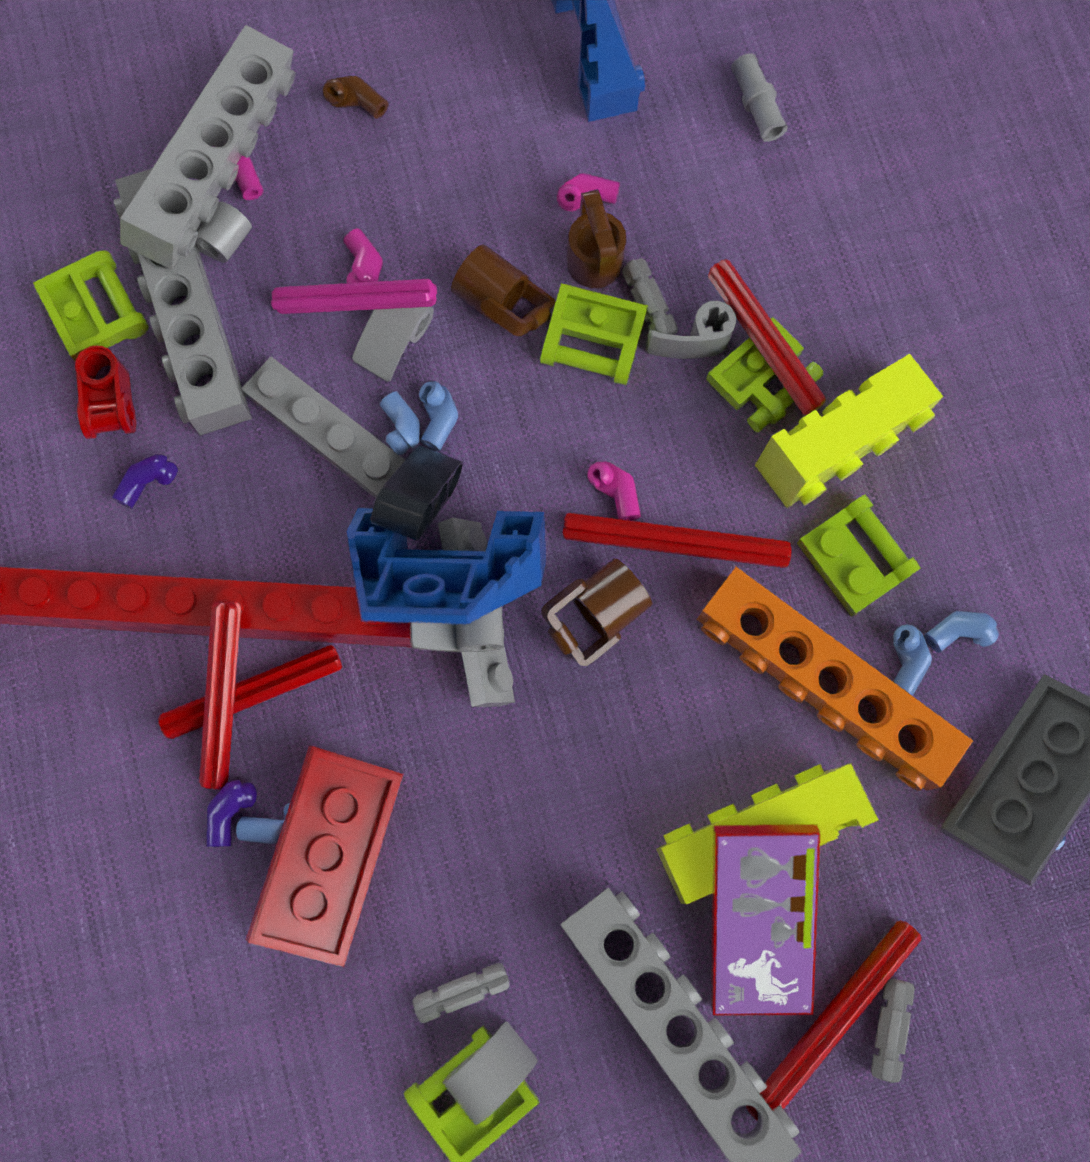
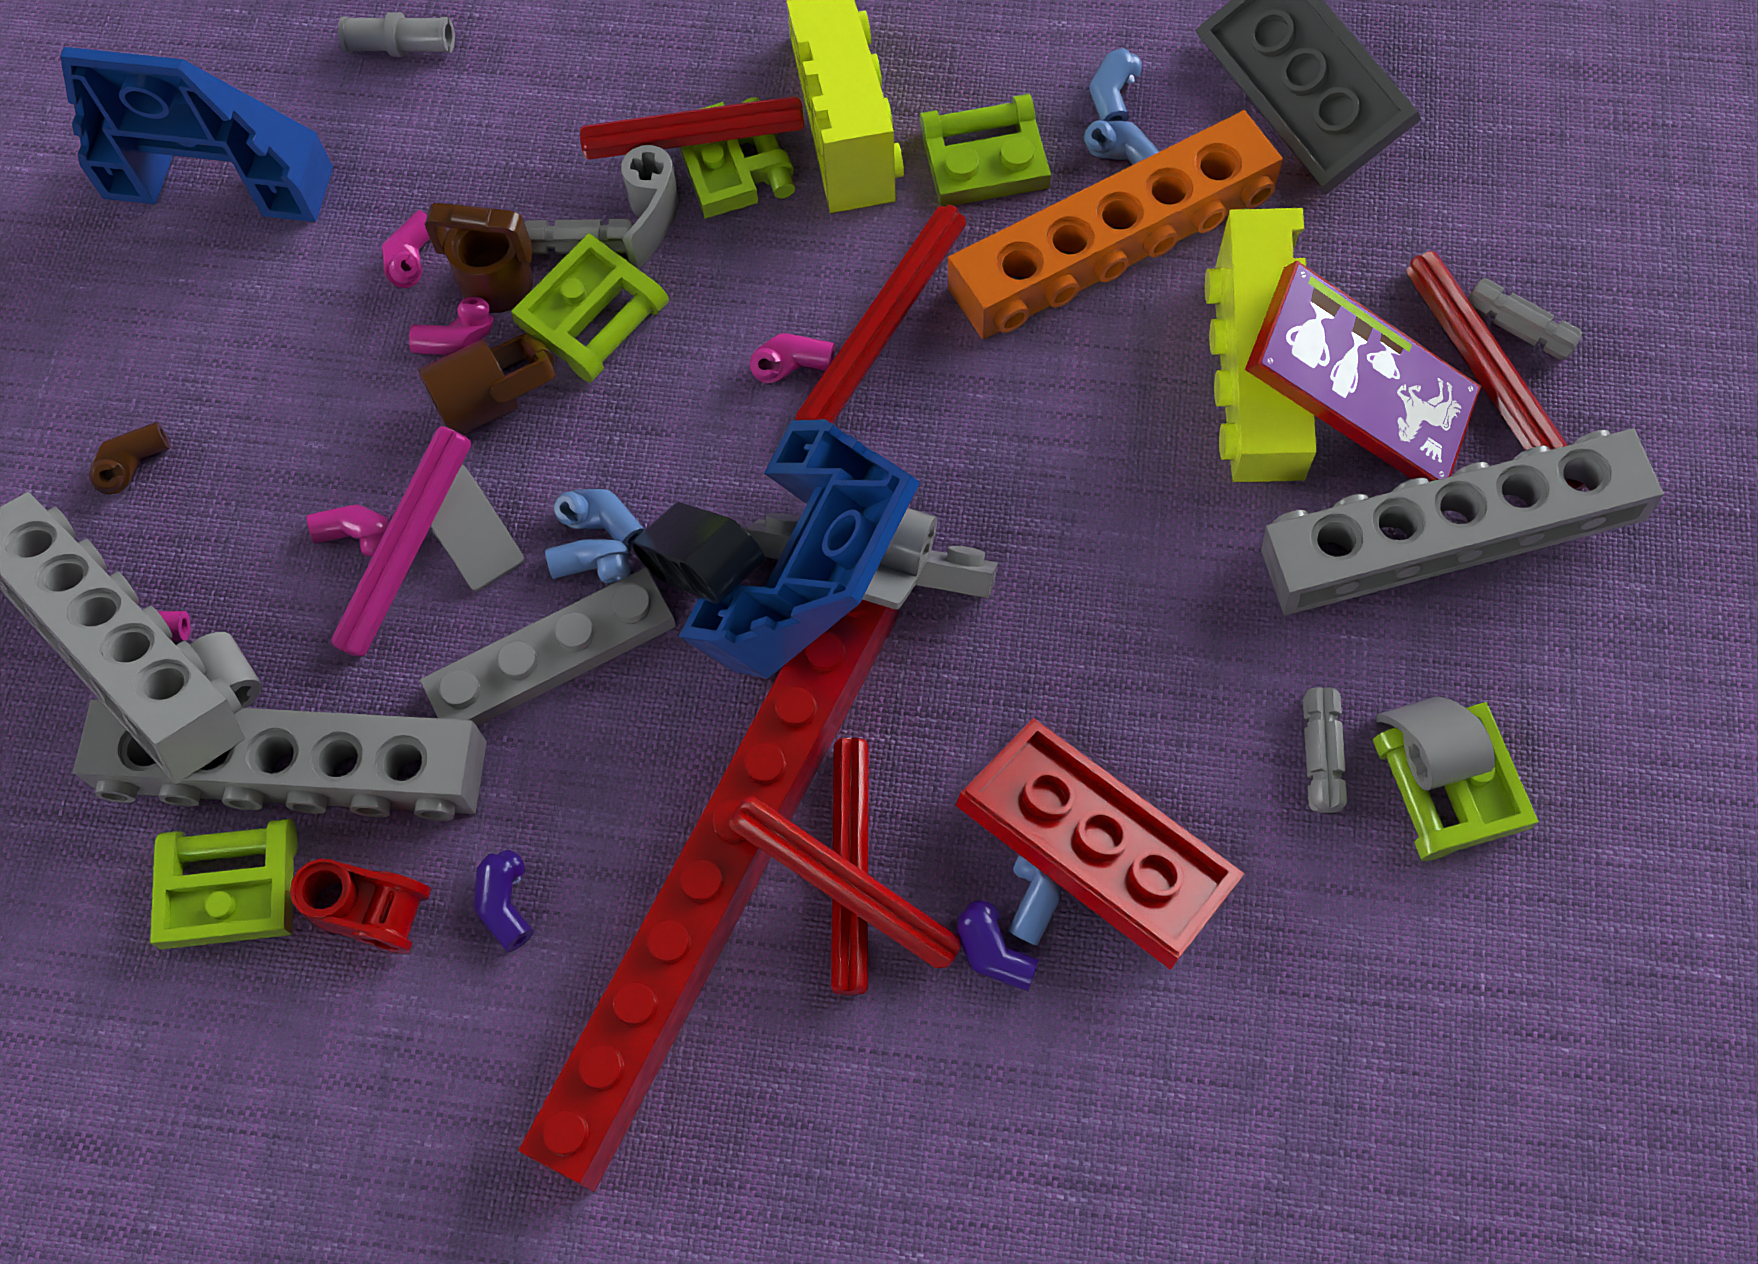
camera: 60 degrees left, 10 degrees down
(543, 261) = (471, 326): none -> dark pink arm
(606, 601) = (928, 417): reddish brown piece -> none

